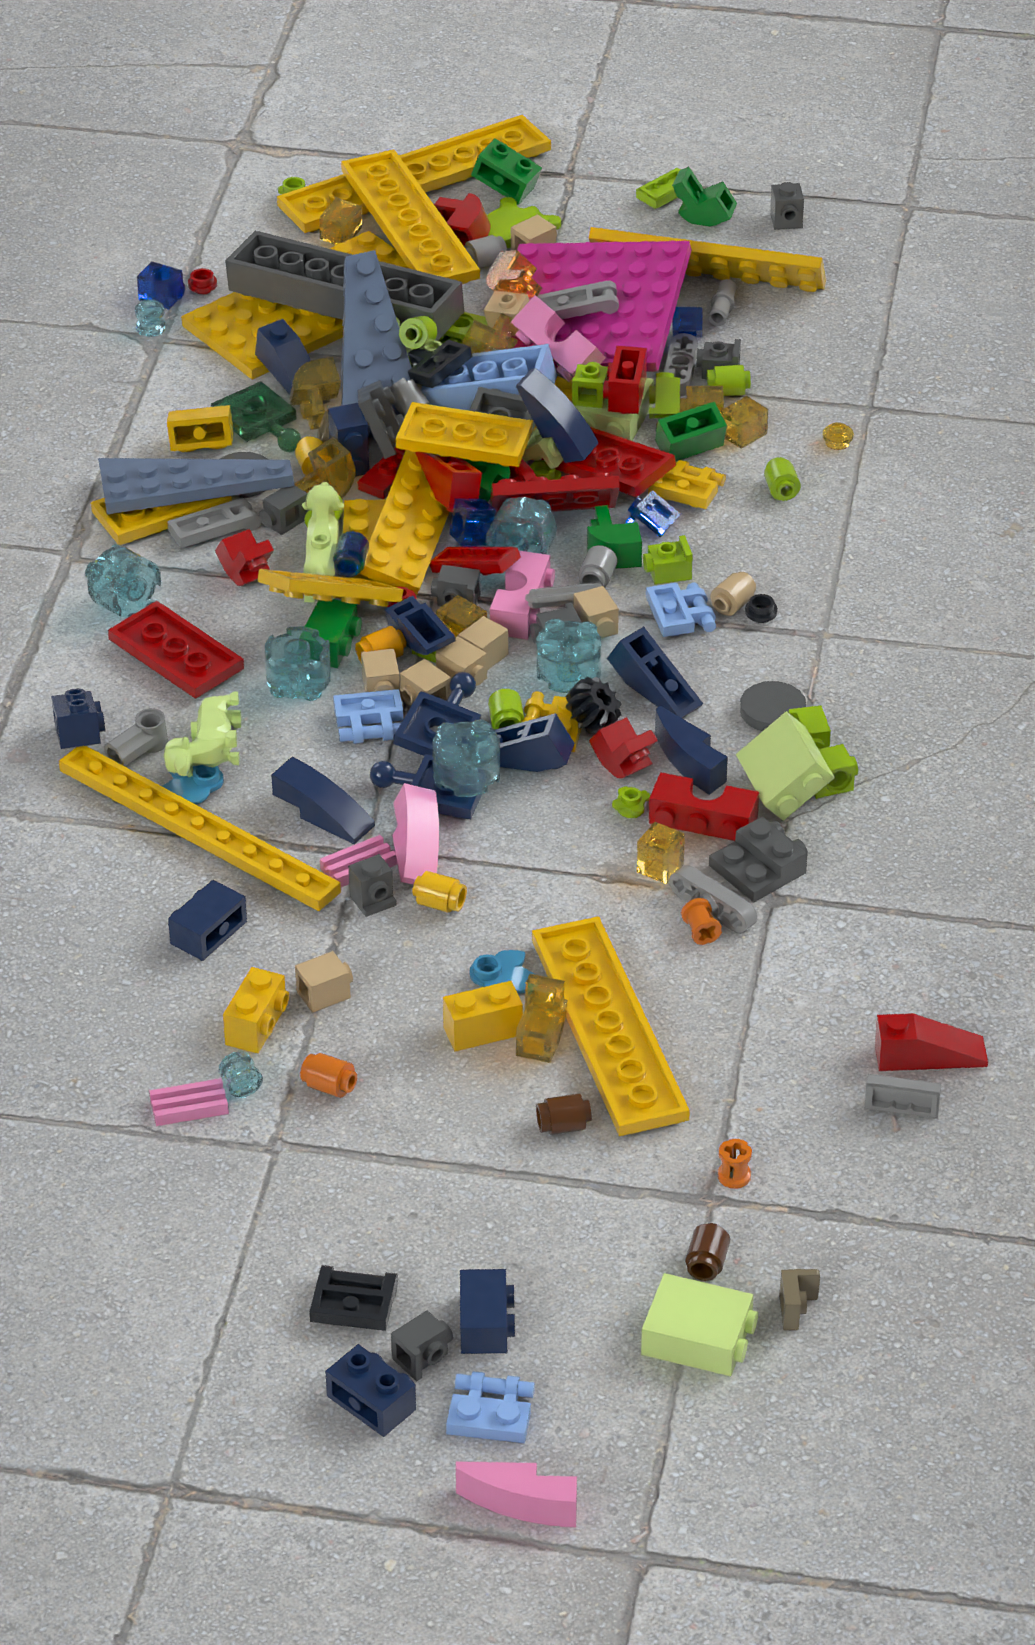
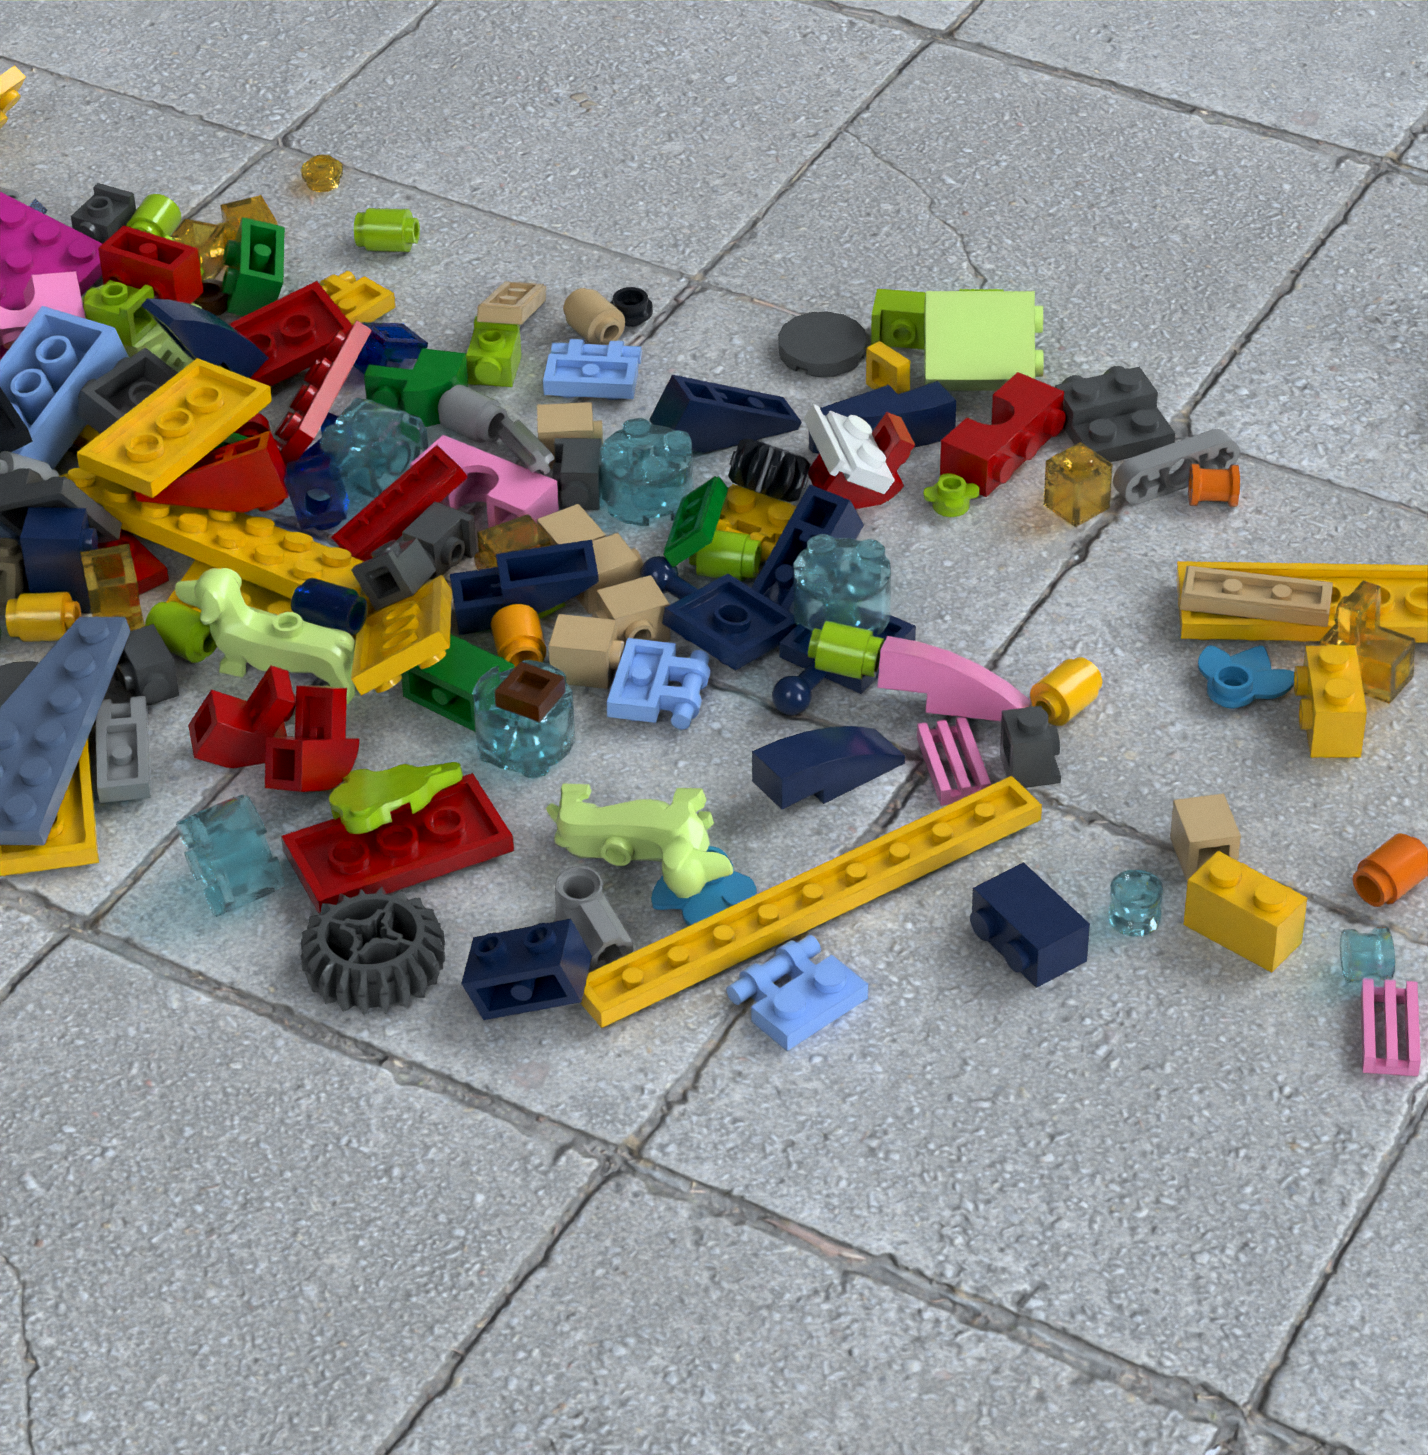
camera: 70 degrees left, 0 degrees up
(79, 660) = (372, 950): none -> dark grey gear
(117, 849) = (804, 1004): none -> light blue plate
(202, 626) = (370, 796): none -> lime tile
(226, 592) = (319, 750): none -> red brick
(247, 956) = (1135, 903): none -> clear light blue wheel
(284, 643) = (530, 691): none -> reddish brown plate
(400, 571) = (394, 572): none -> dark grey brick
(413, 769) = (845, 650): none -> lime brick
(515, 682) = (695, 520): none -> green tile
(571, 956) = (1256, 596): none -> tan tile
(610, 724) = (849, 448): none -> white plate
(716, 549) = (512, 303): none -> tan tile
(743, 735) = (886, 368): none -> yellow tile

